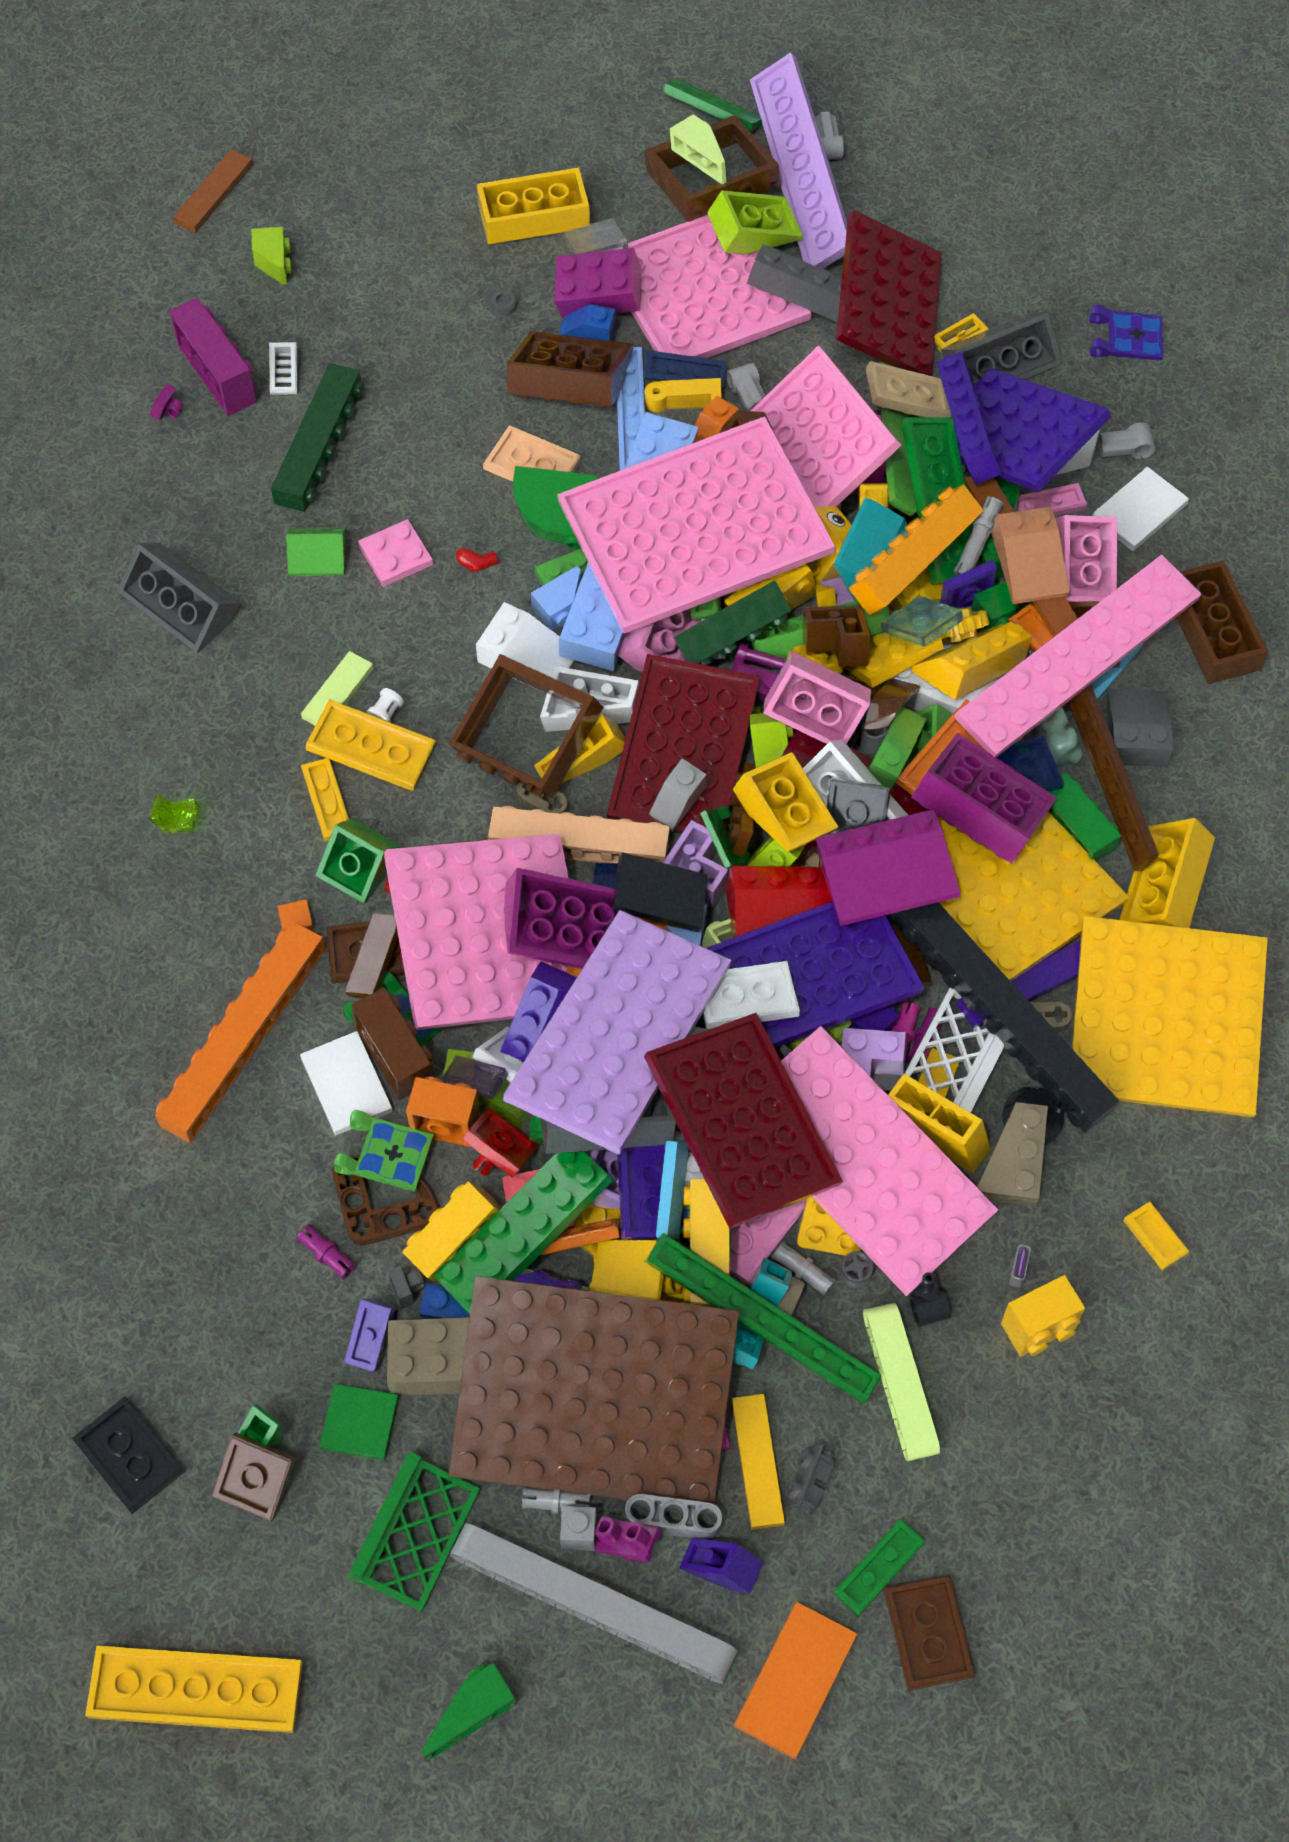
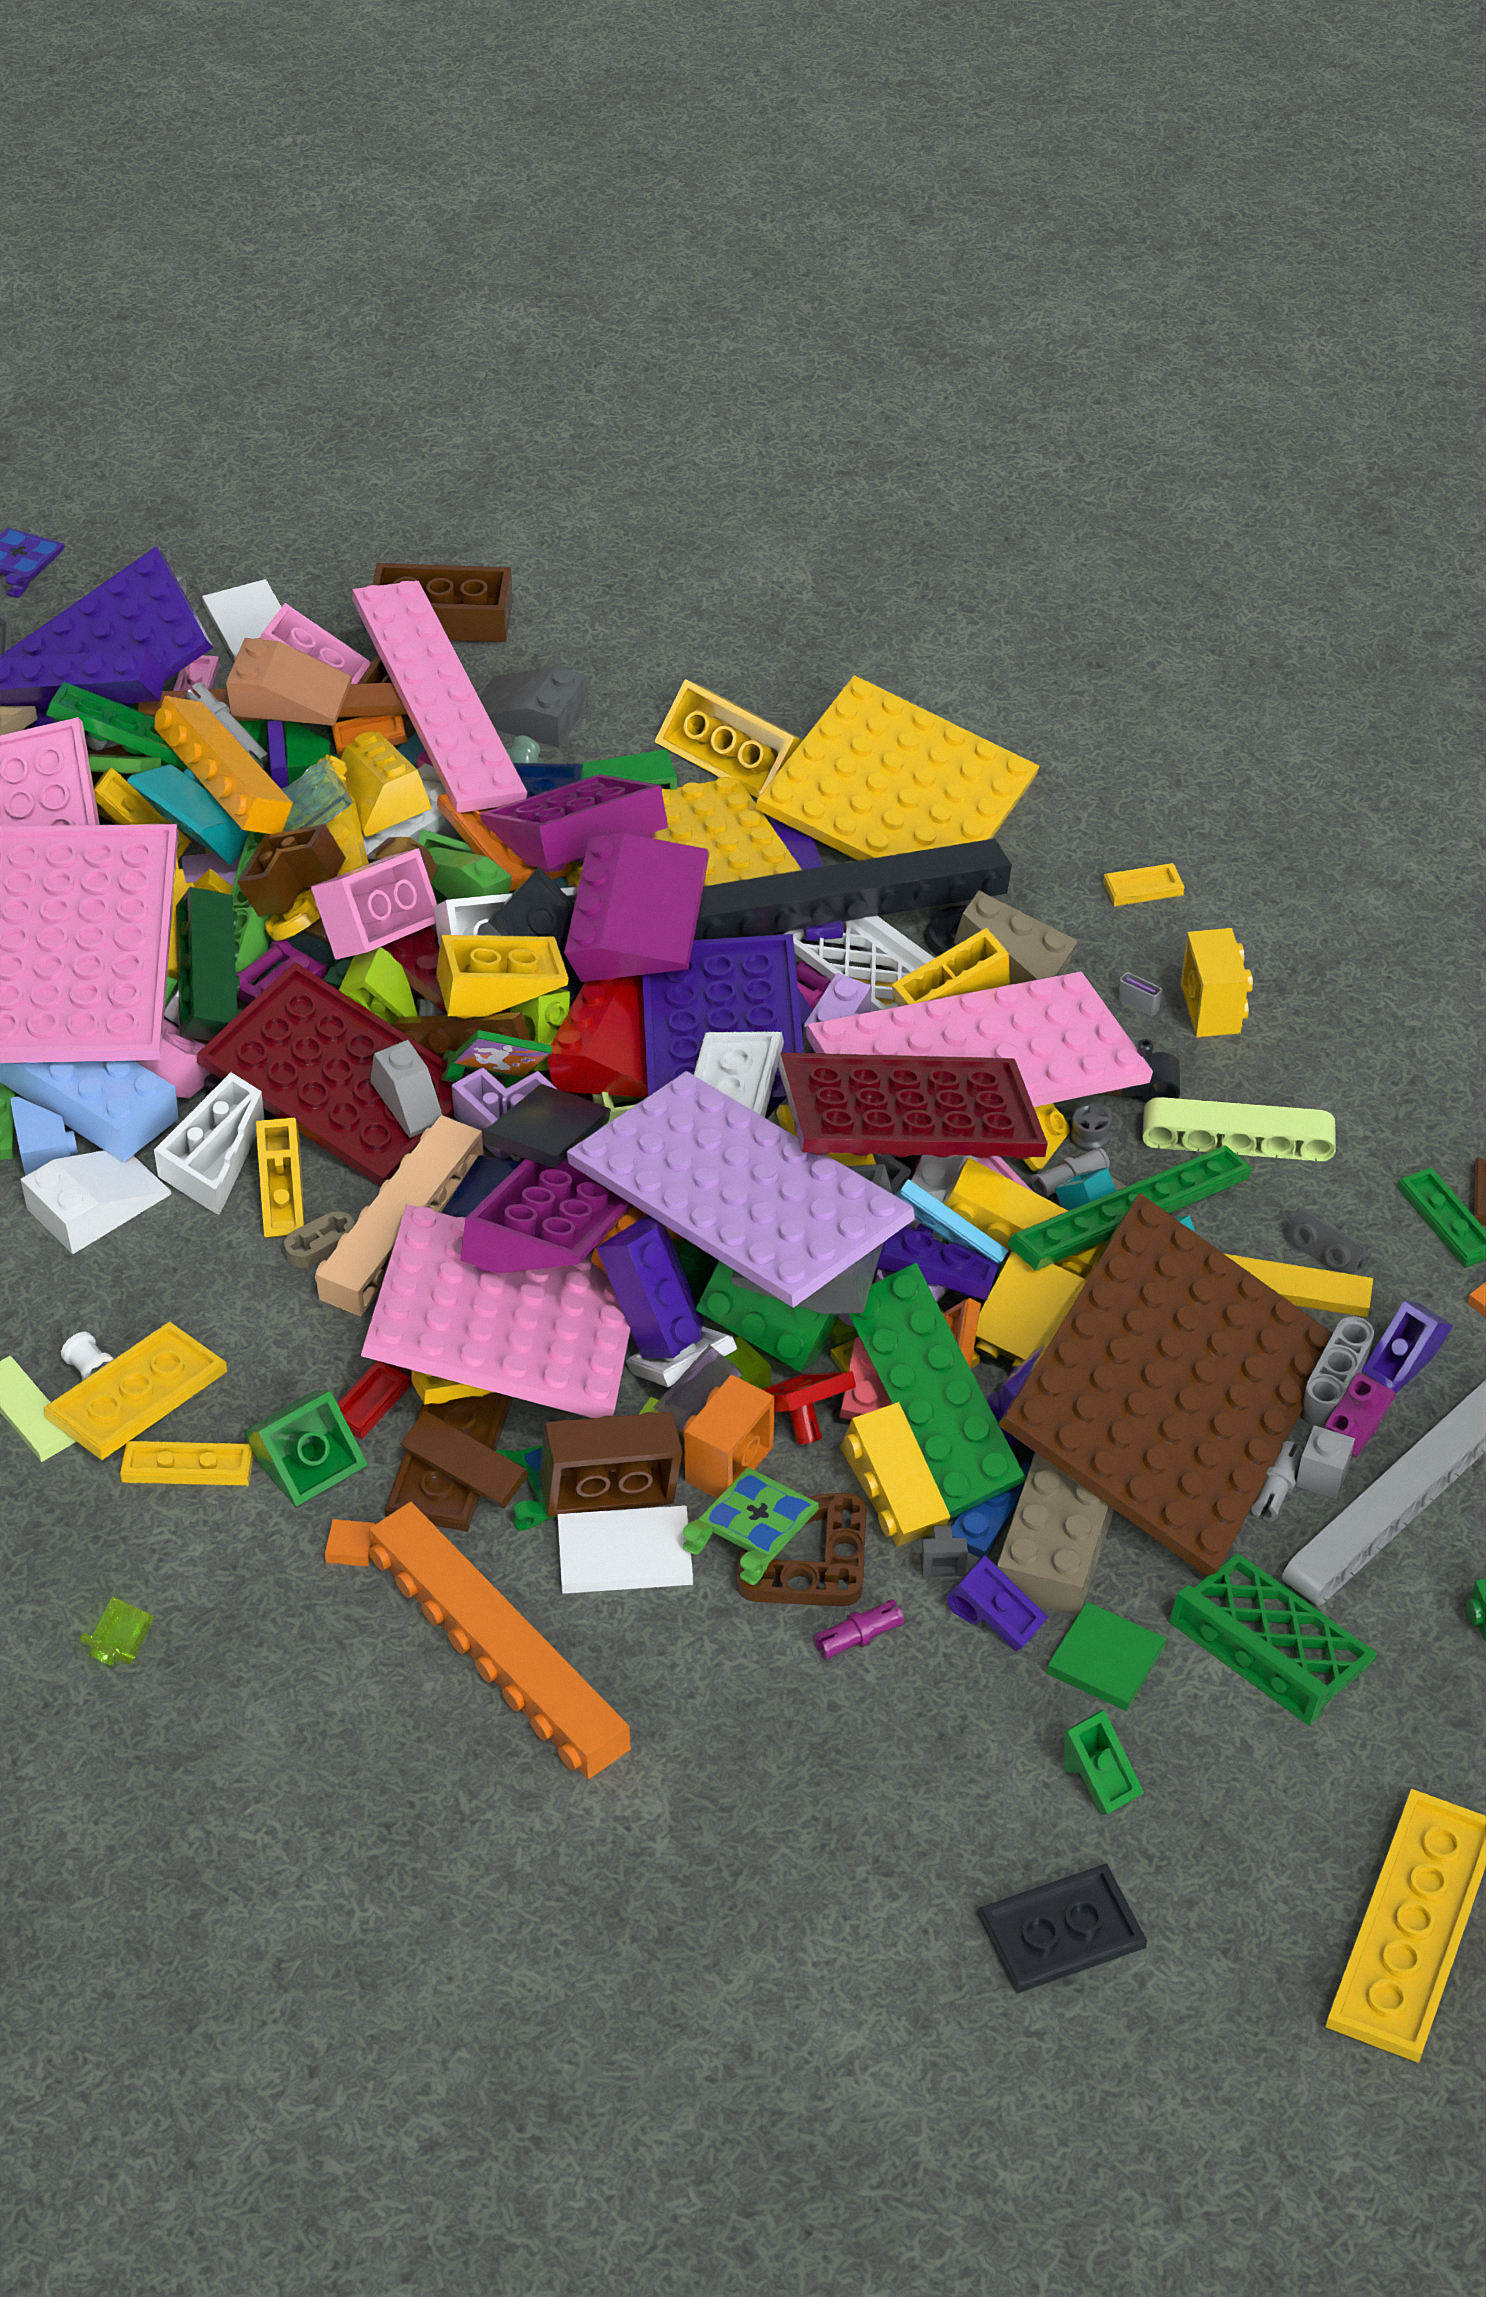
camera: 70 degrees left, 15 degrees down
(253, 1476) = (1150, 1777): tile -> none
(484, 704) = (196, 1149): reddish brown window -> none
(1113, 779) = (605, 734): reddish brown tile -> none

